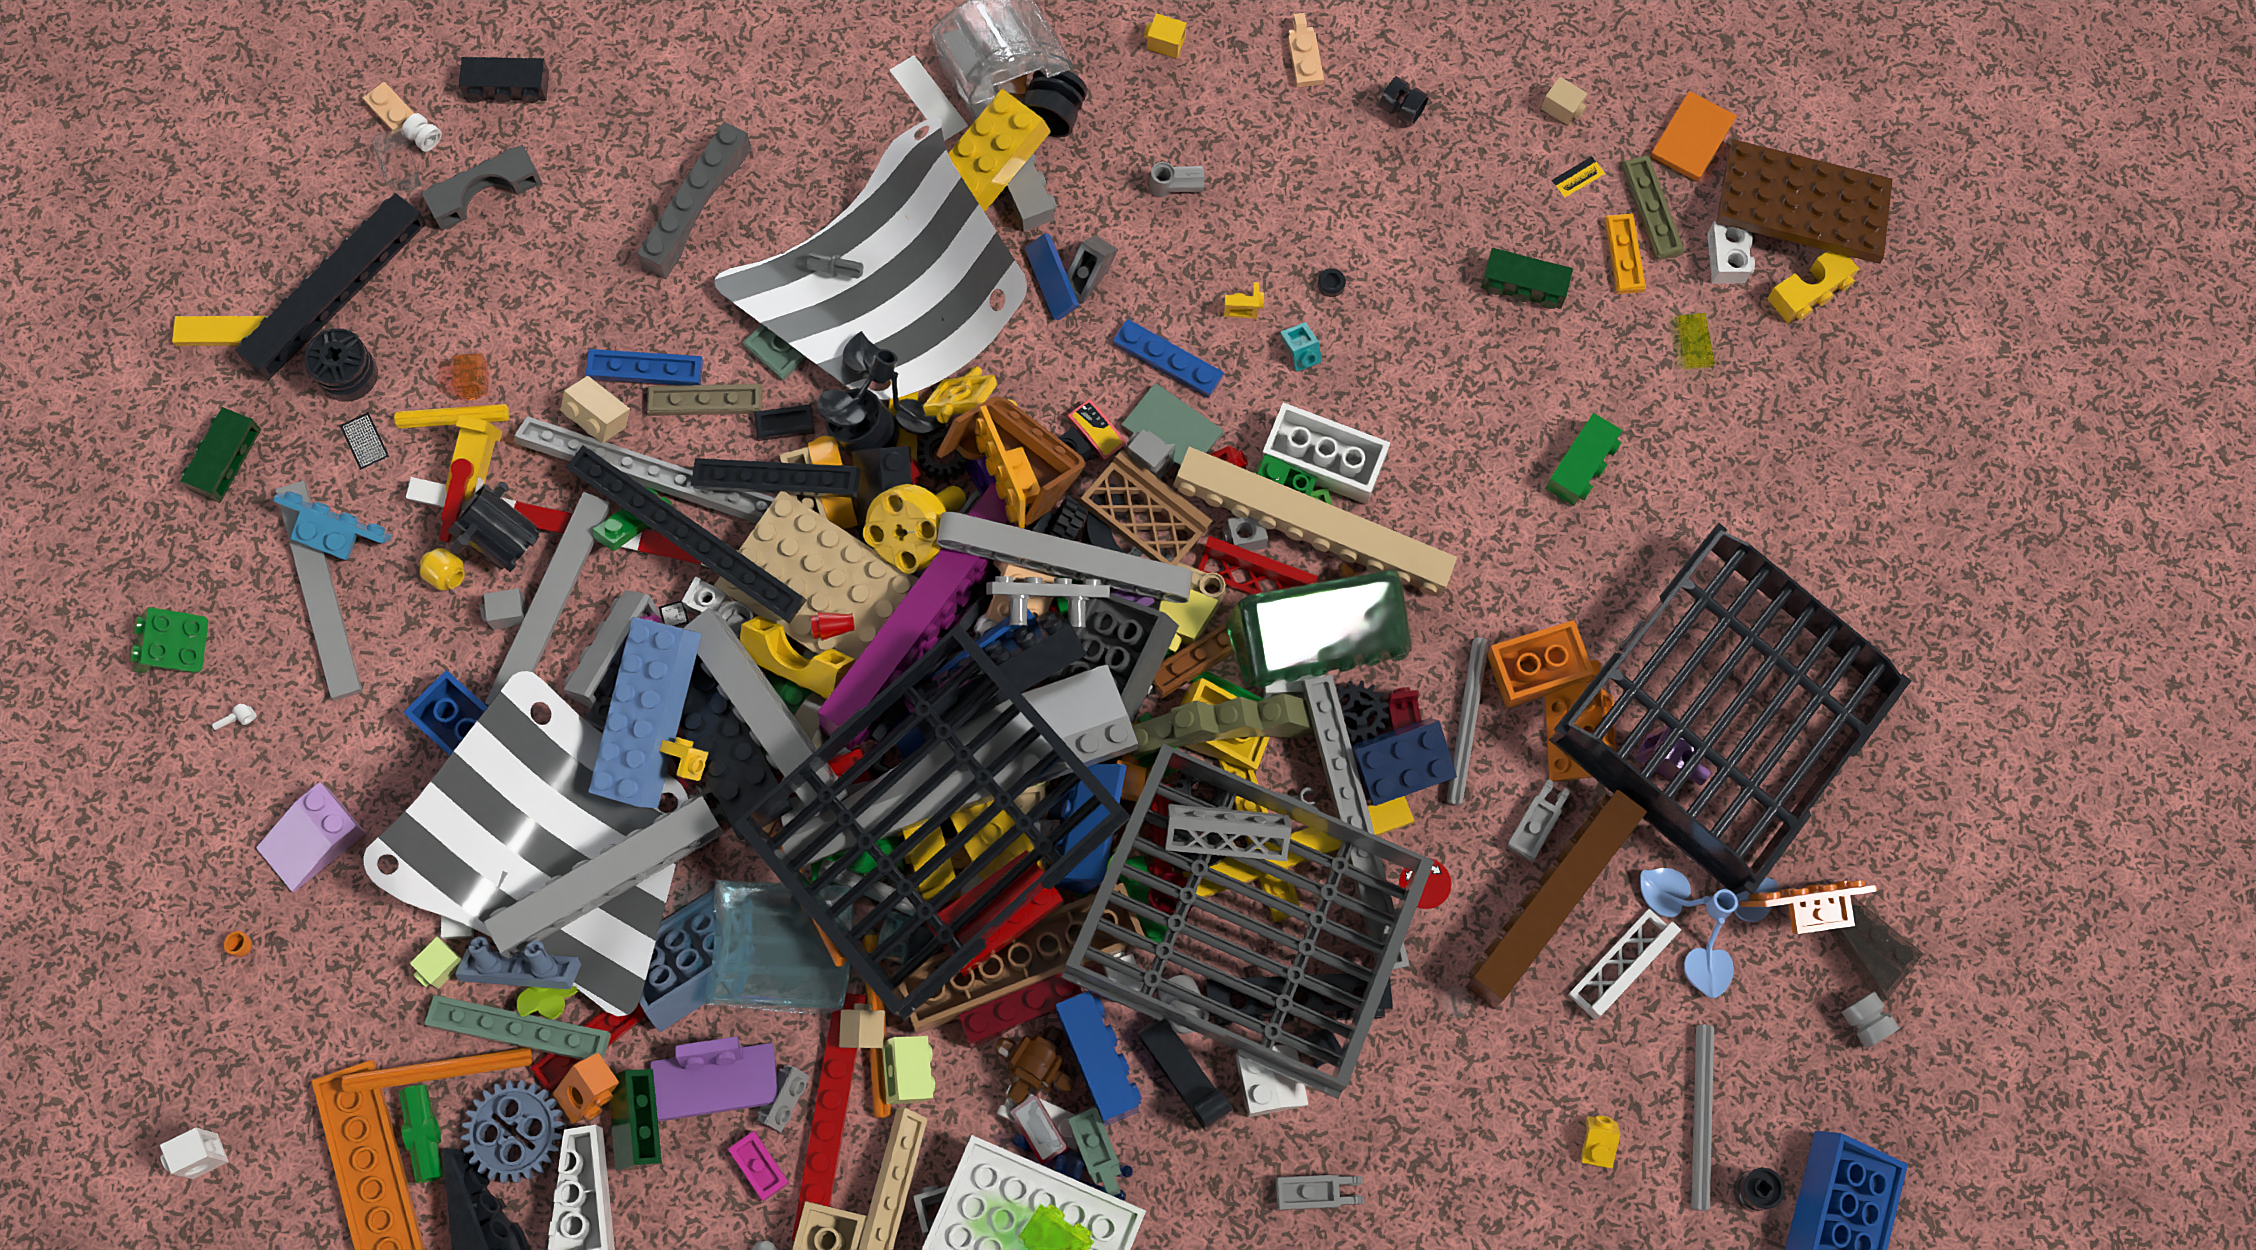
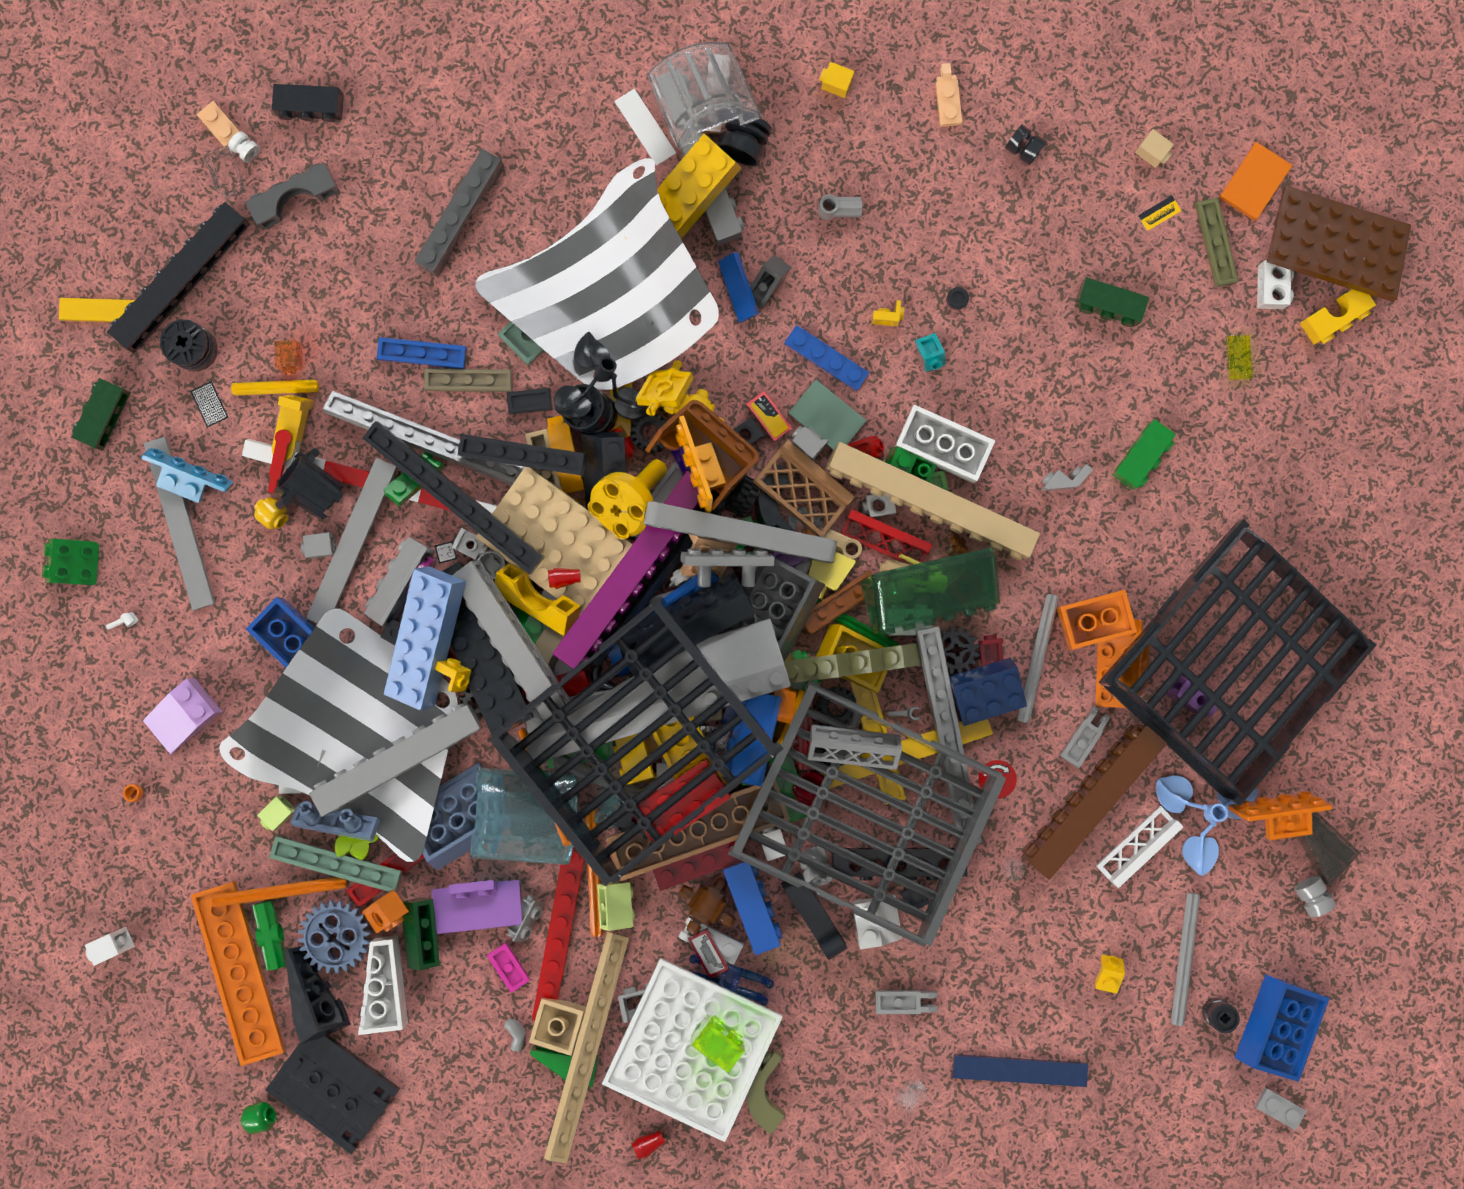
camera: 10 degrees right, 15 degrees up
(594, 409) = (383, 388): tan brick -> none
(835, 265) = (569, 273): dark grey axle -> none
(862, 1027) = (581, 877): tan brick -> none
(1096, 1149) = (748, 969): sand green hinge -> none
(1480, 496) = (1060, 481): none -> light grey slope
(1625, 253) = (1191, 281): light orange tile -> none

